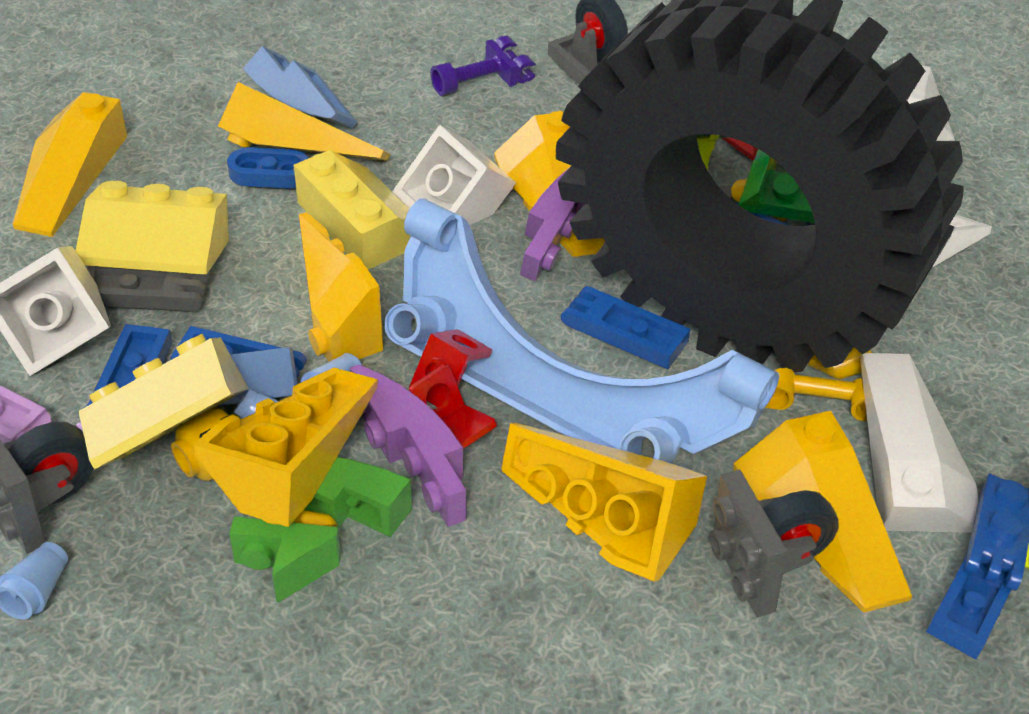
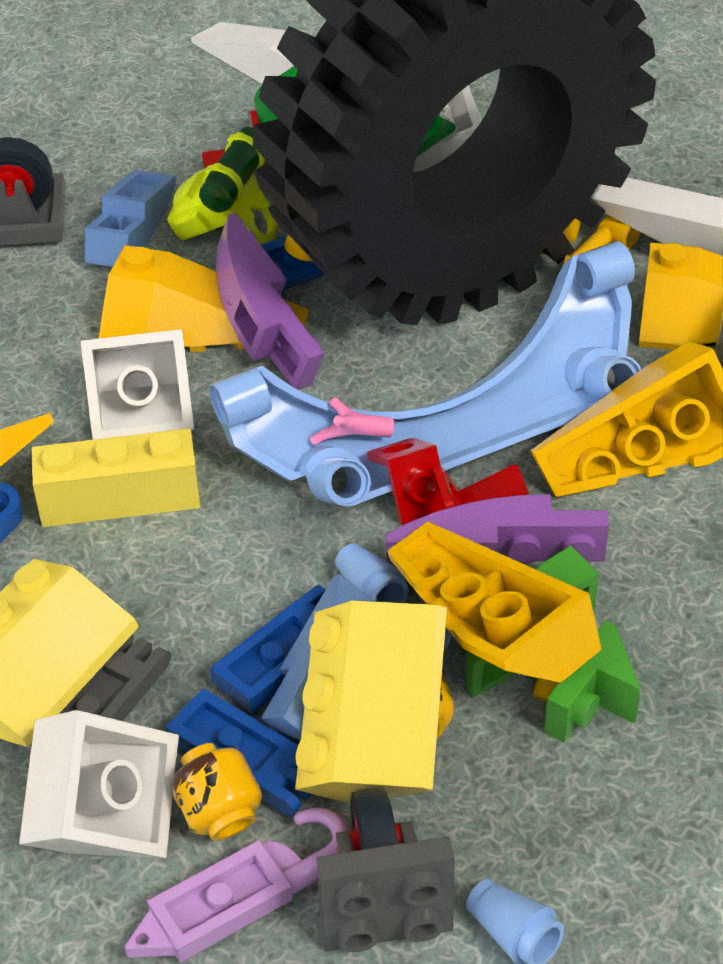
camera: 60 degrees left, 0 degrees up
(74, 368) = (216, 791): none -> yellow head
(341, 296) = (252, 524): yellow wedge -> none
(475, 307) = (353, 424): none -> bright pink bar
(626, 326) = (432, 339): blue hinge -> none

